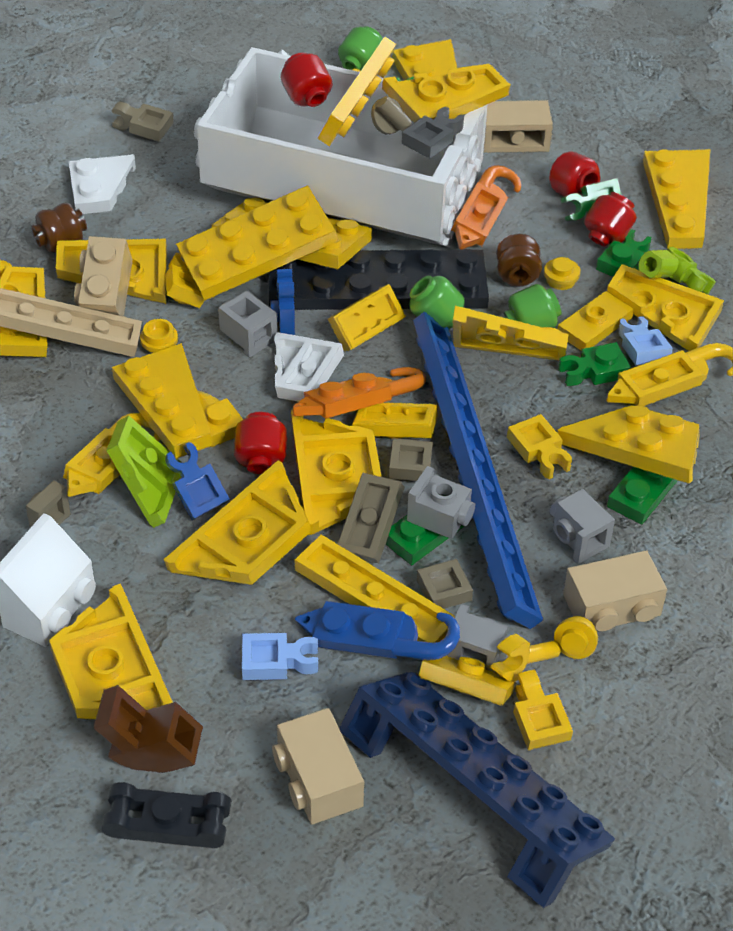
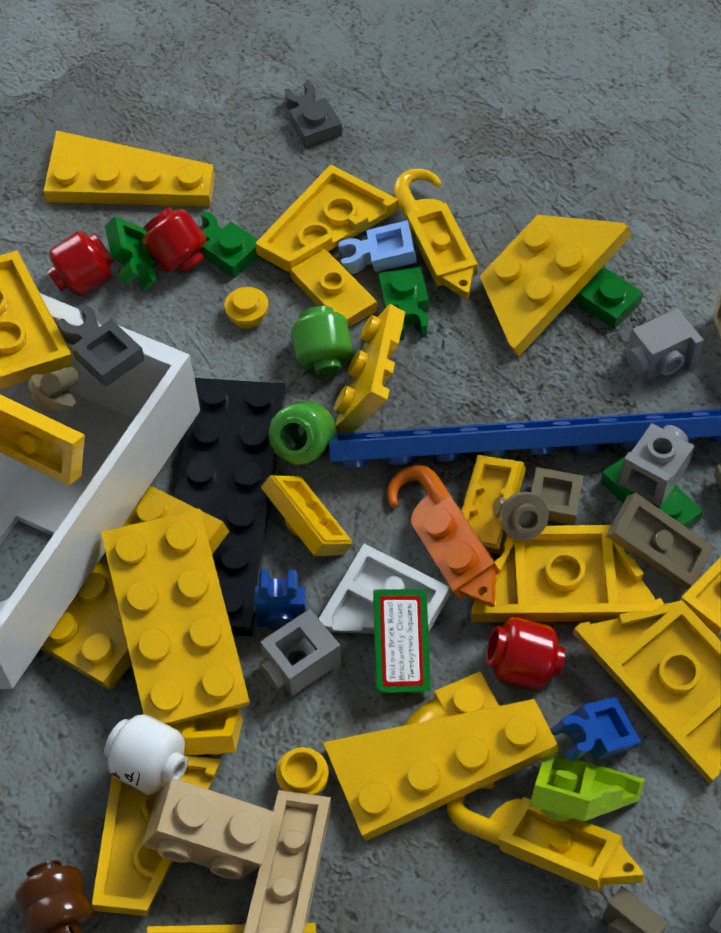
camera: 80 degrees left, 10 degrees up
(154, 242) = (145, 753): none -> white head
(260, 367) = (401, 640): none -> slope
(375, 425) = (521, 515): none -> dark tan plate
(518, 260) = (228, 341): reddish brown piece -> none
(539, 441) = (535, 371): yellow plate -> none
(676, 265) = (273, 196): lime bar -> none

